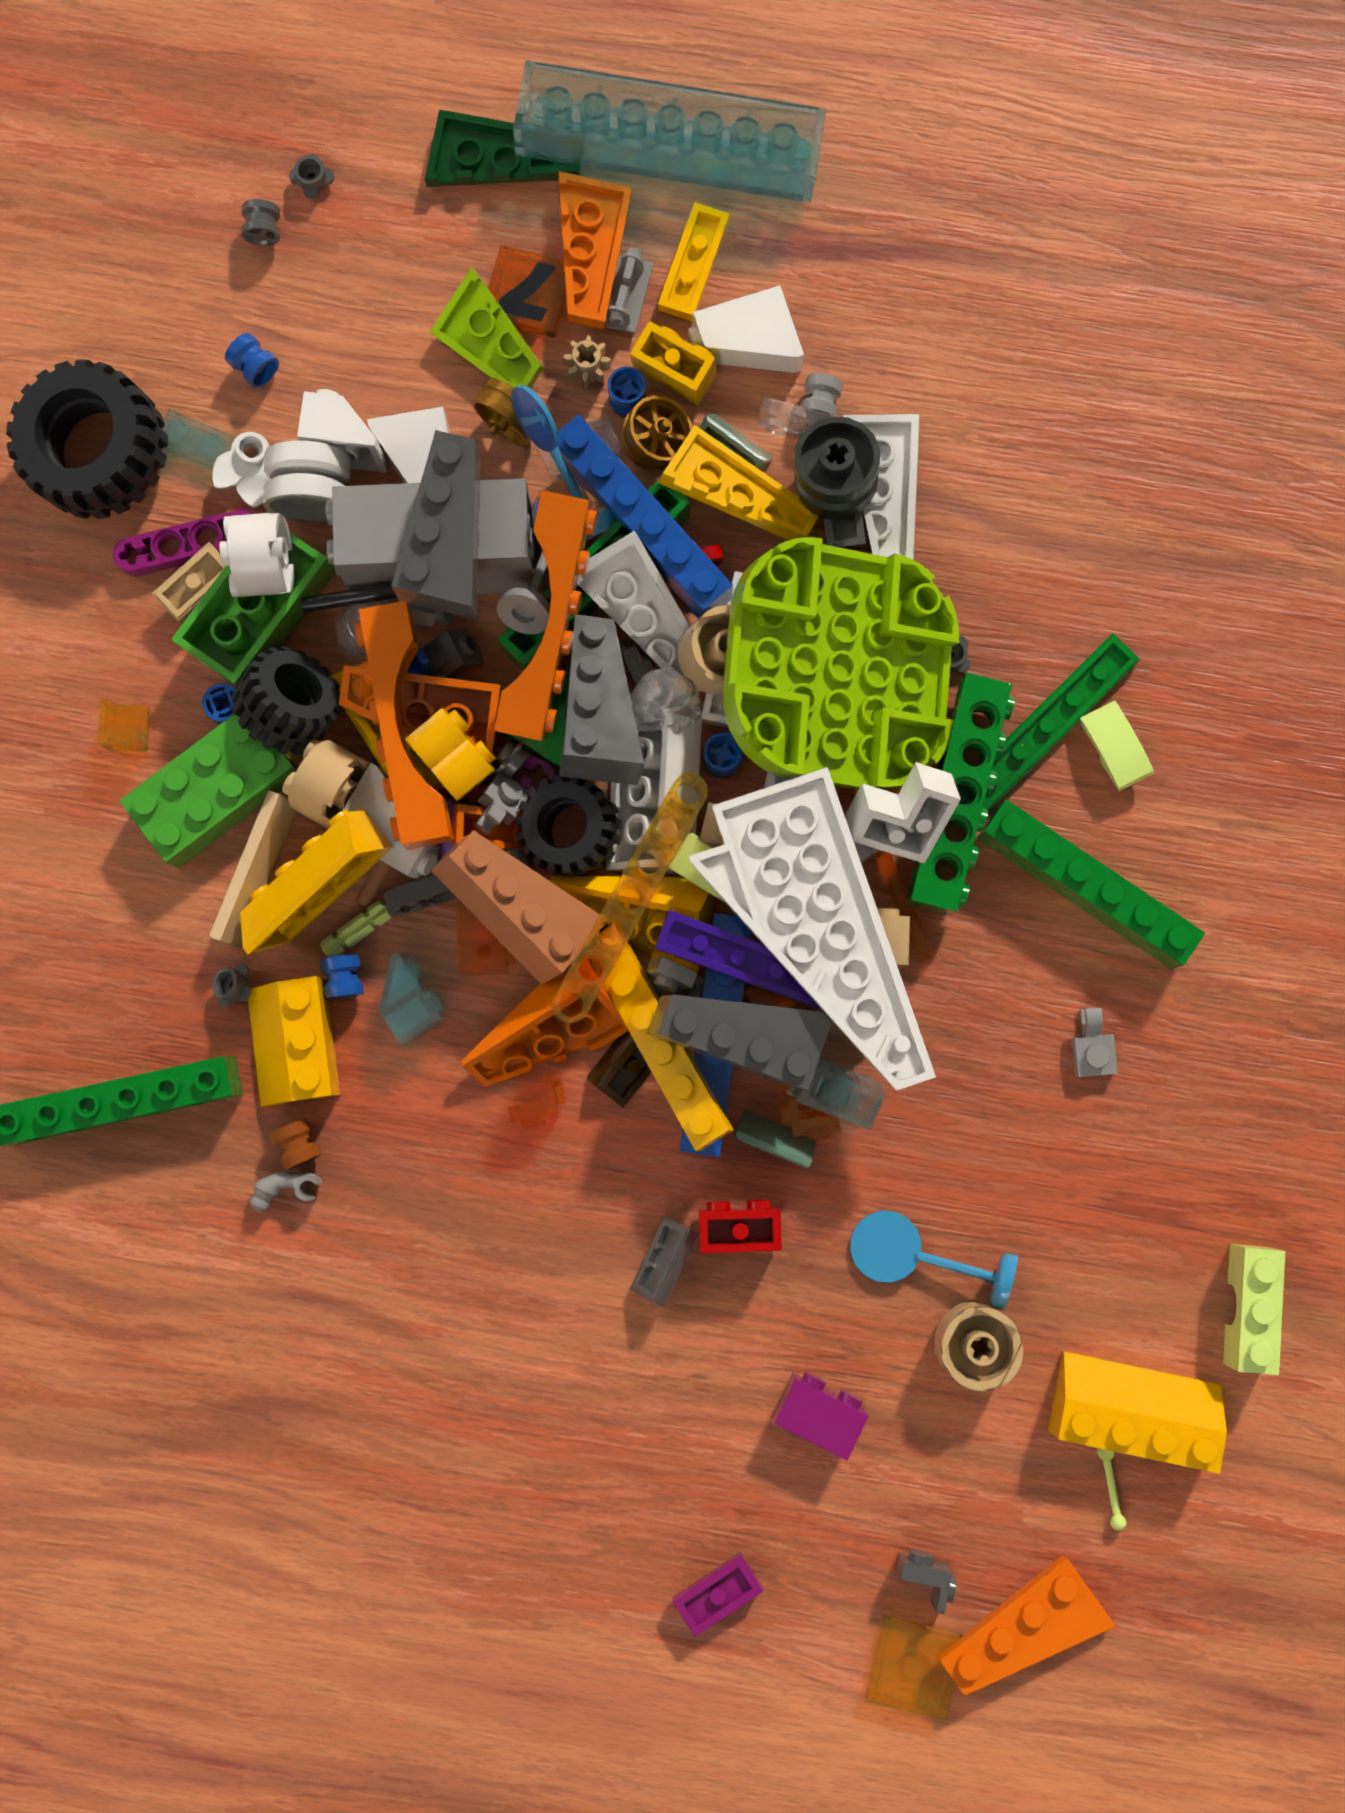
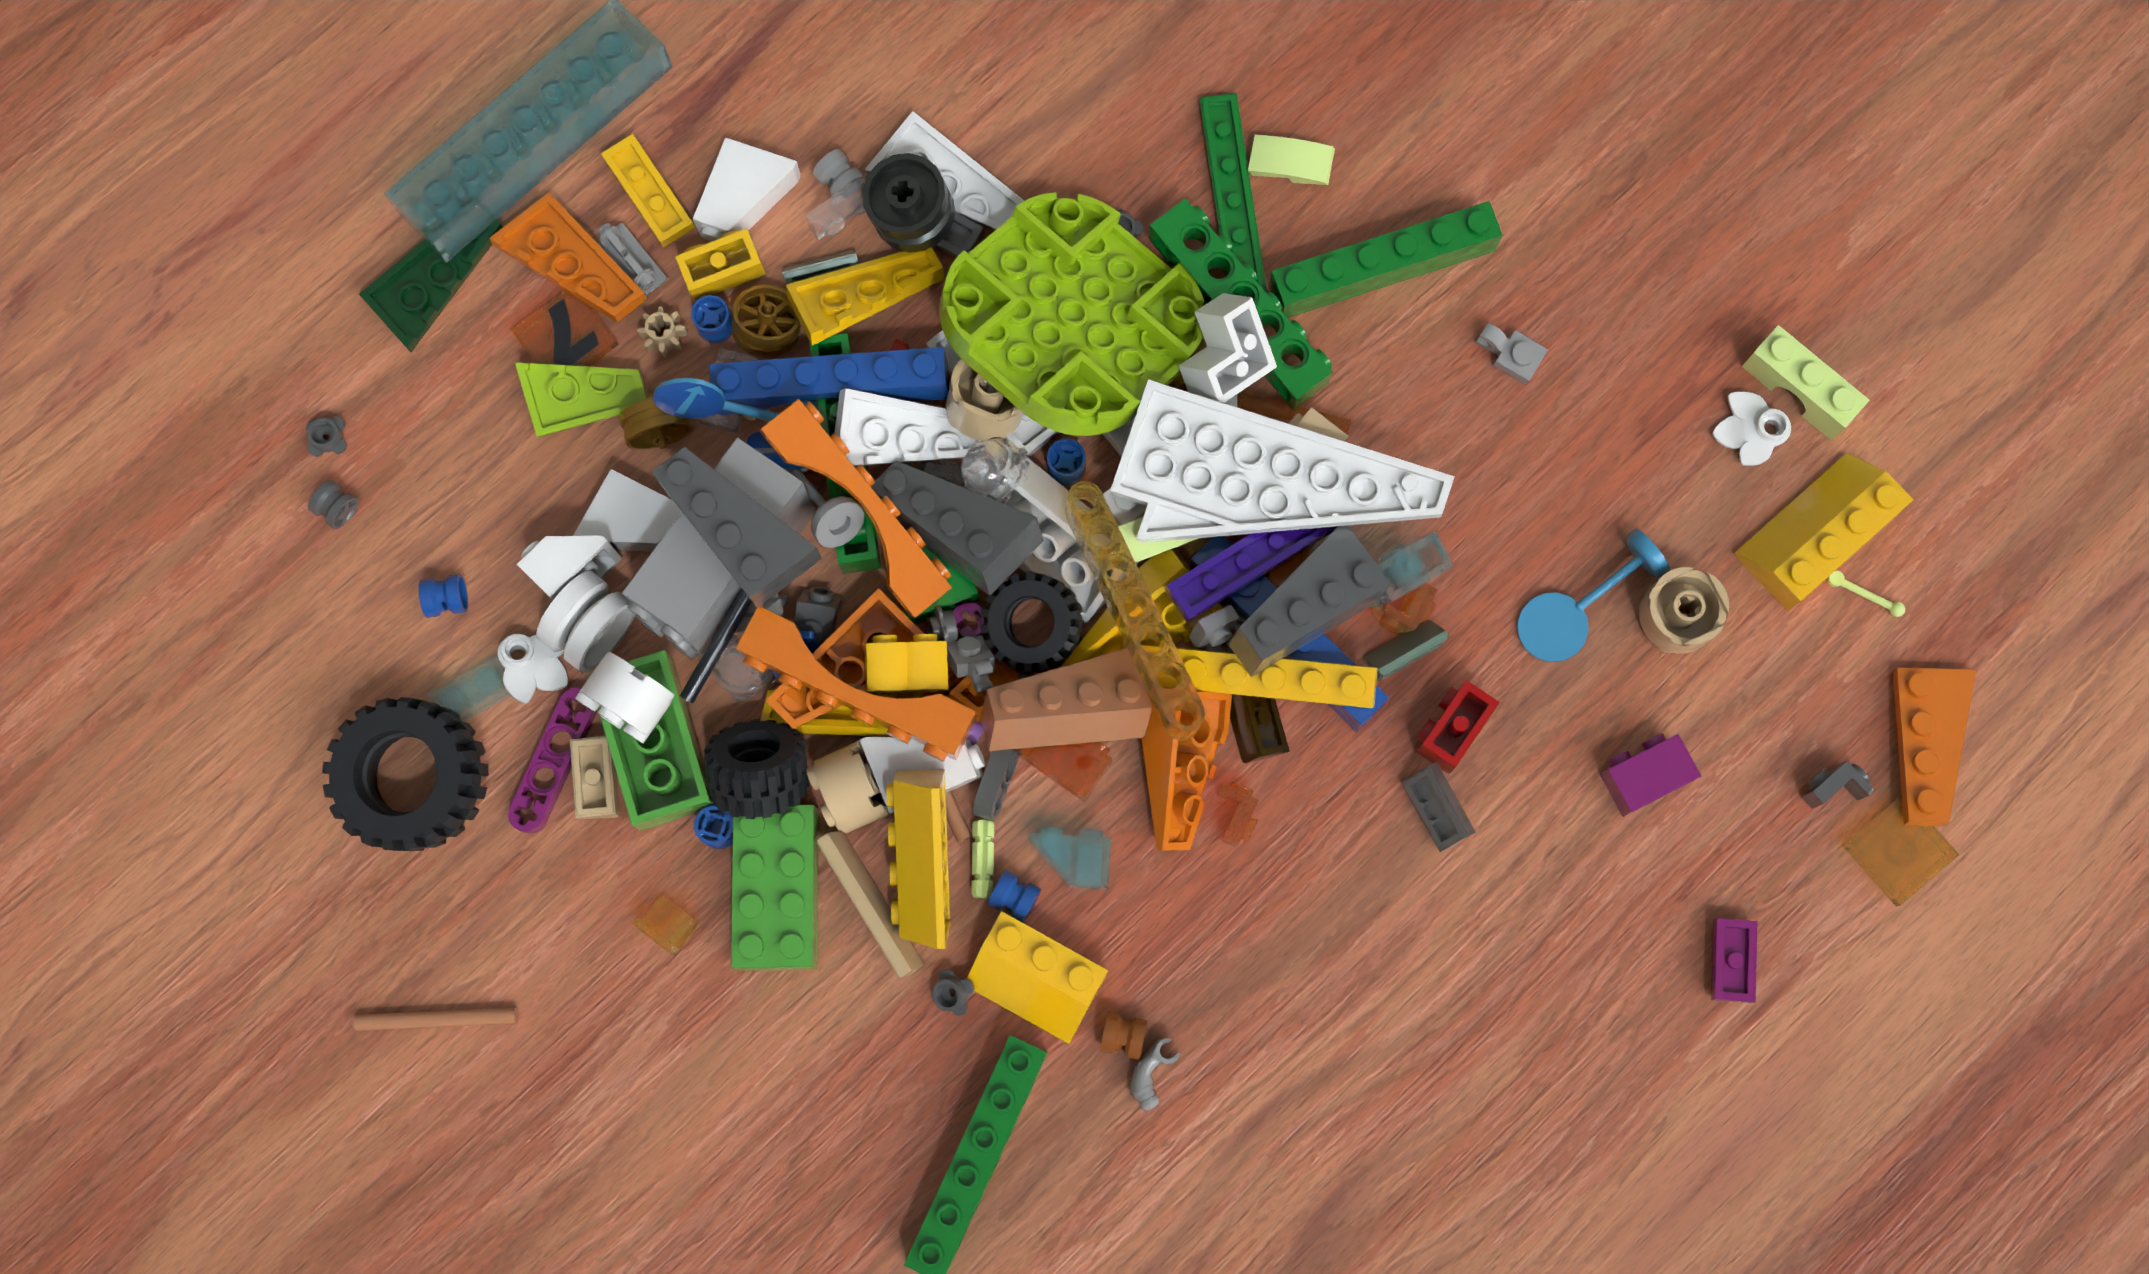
camera: 50 degrees left, 5 degrees down
(1179, 1285) = (1747, 431): none -> white plate

